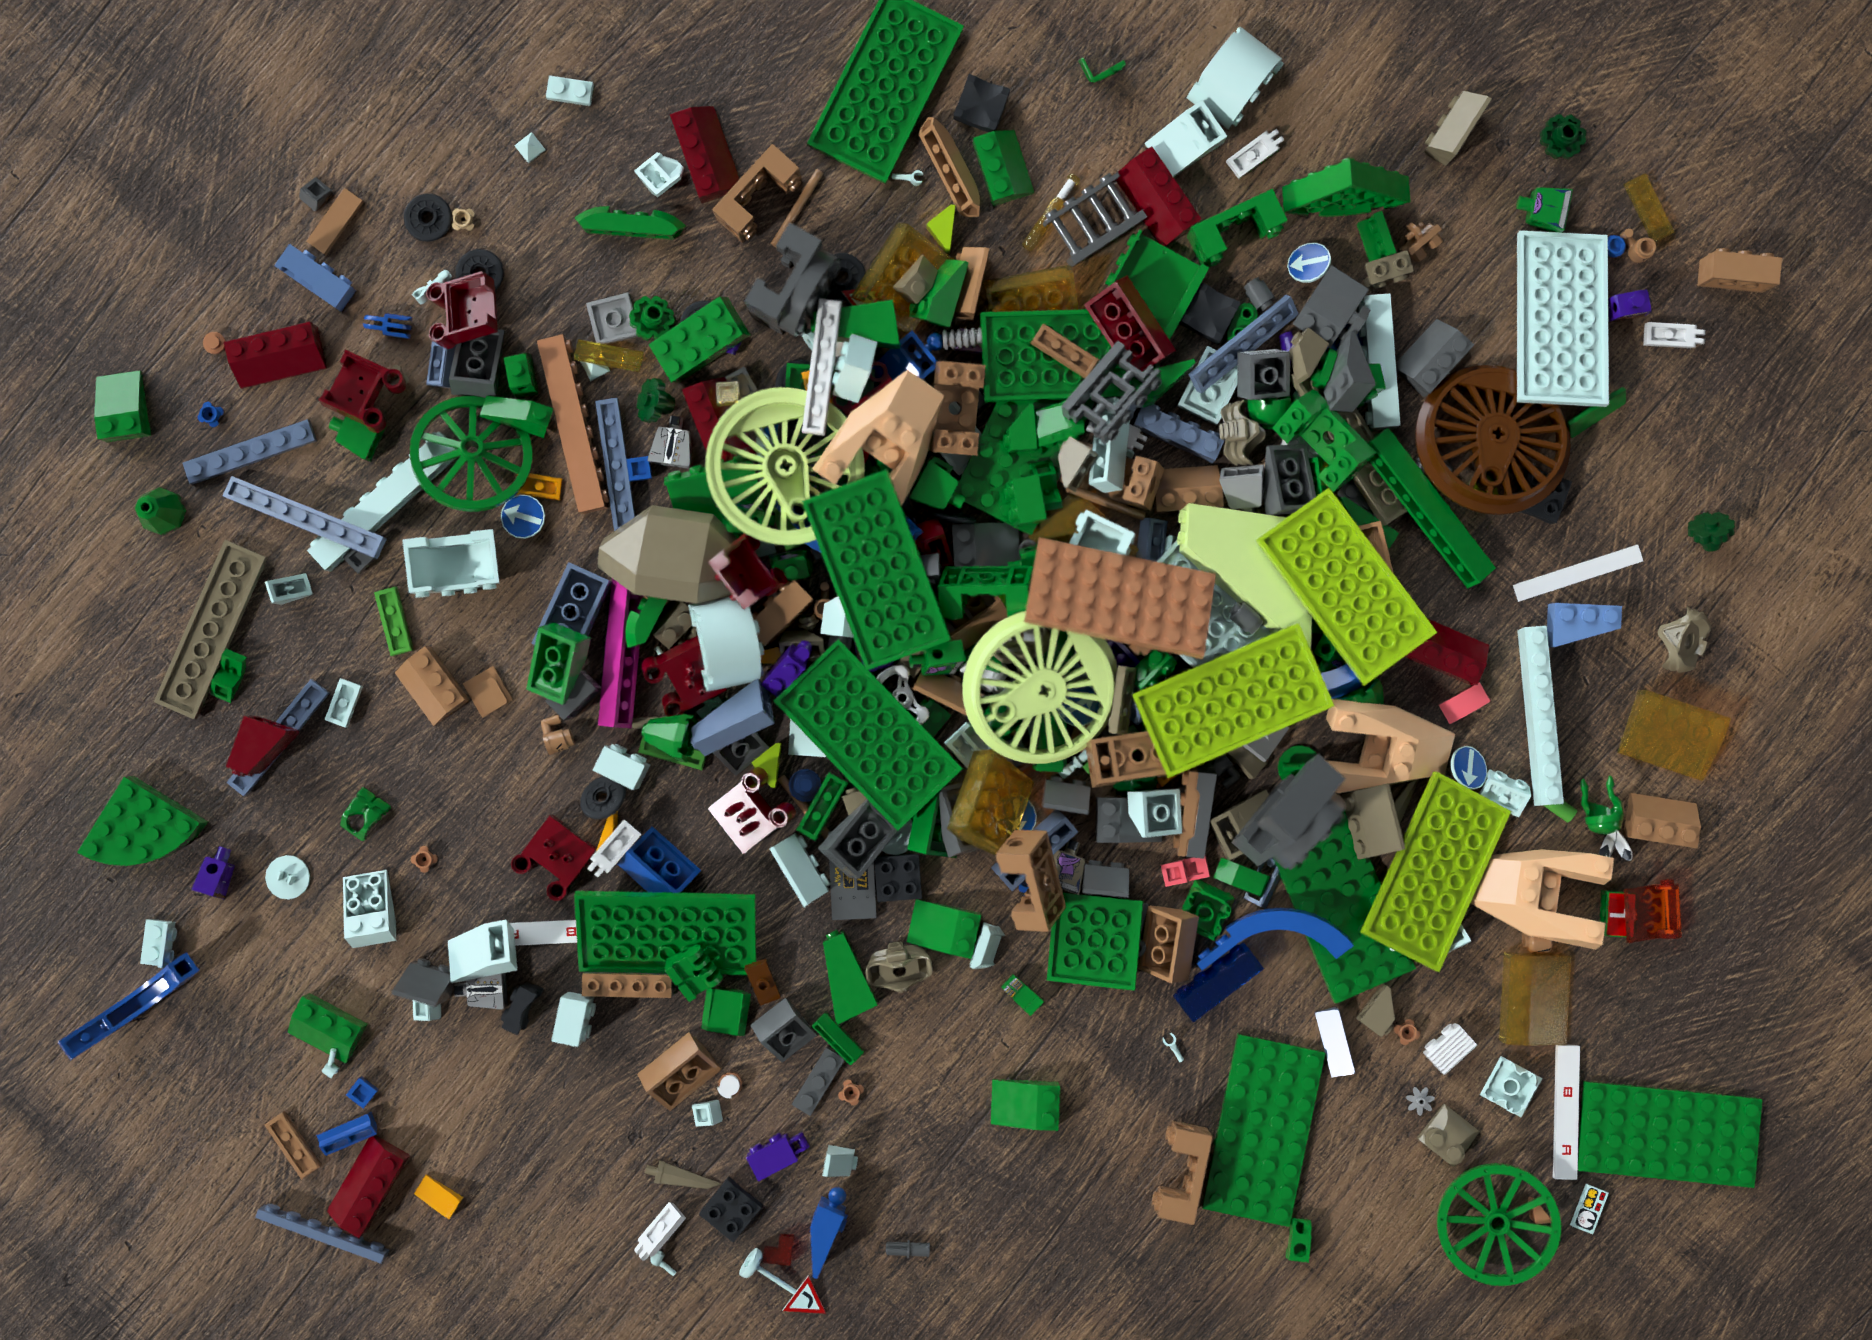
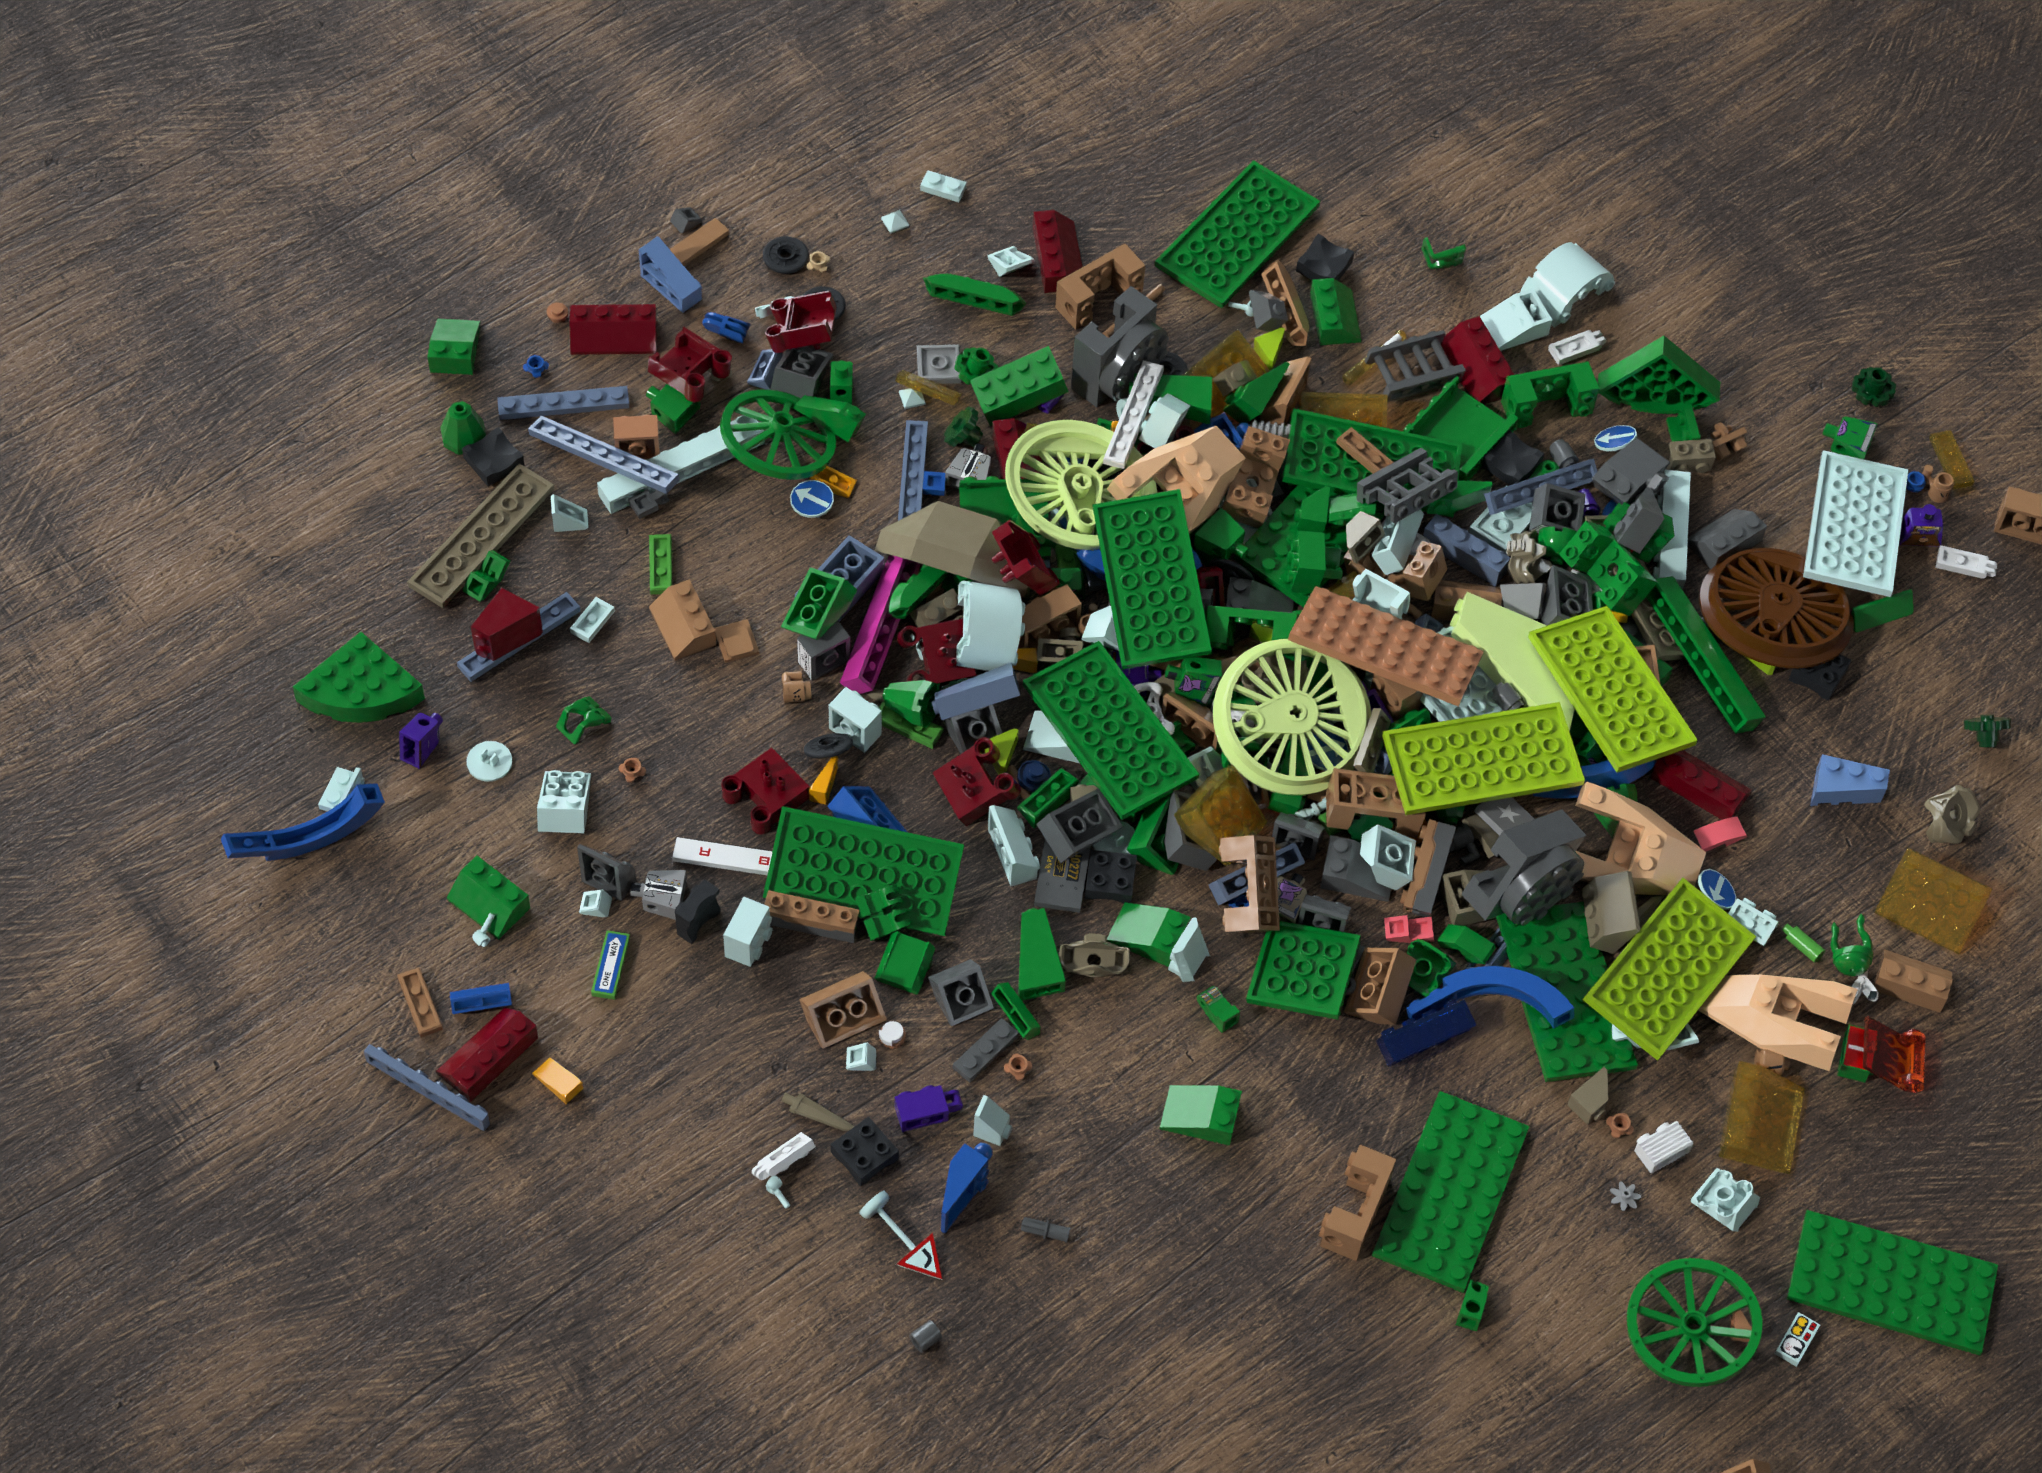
camera: 10 degrees right, 30 degrees down
(197, 537) = (492, 457): none -> black brick
(331, 489) = (637, 435): none -> nougat slope
(362, 1092) = (507, 964): blue plate -> none
(451, 564) = (735, 522): light aqua cylinder -> none
(456, 1069) = (610, 965): none -> tile
(482, 952) = (673, 850): light aqua slope -> none
(572, 424) = (879, 438): nougat brick -> none
(614, 848) = (830, 783): white hinge -> none
(762, 981) = (950, 941): reddish brown plate -> none
(782, 1254) = (908, 1207): clear red piece -> none
(787, 668) = (1043, 656): dark purple brick -> none
(932, 181) = (1267, 310): none -> dark grey slope
(1127, 319) = (1428, 429): dark red slope -> none
(1173, 1046) = (1366, 1087): light aqua hand -> none
(1306, 353) = (1601, 500): dark tan slope -> none
(1334, 1042) = (1541, 1119): slope -> none
(1448, 1135) = (1650, 1236): dark tan slope -> none
(1455, 126) = (1772, 358): slope -> none
(1540, 716) = (1796, 854): light aqua brick -> none
(1566, 1112) = (1782, 1238): white tile -> none
(1578, 573) = (1850, 746): white sticker -> none

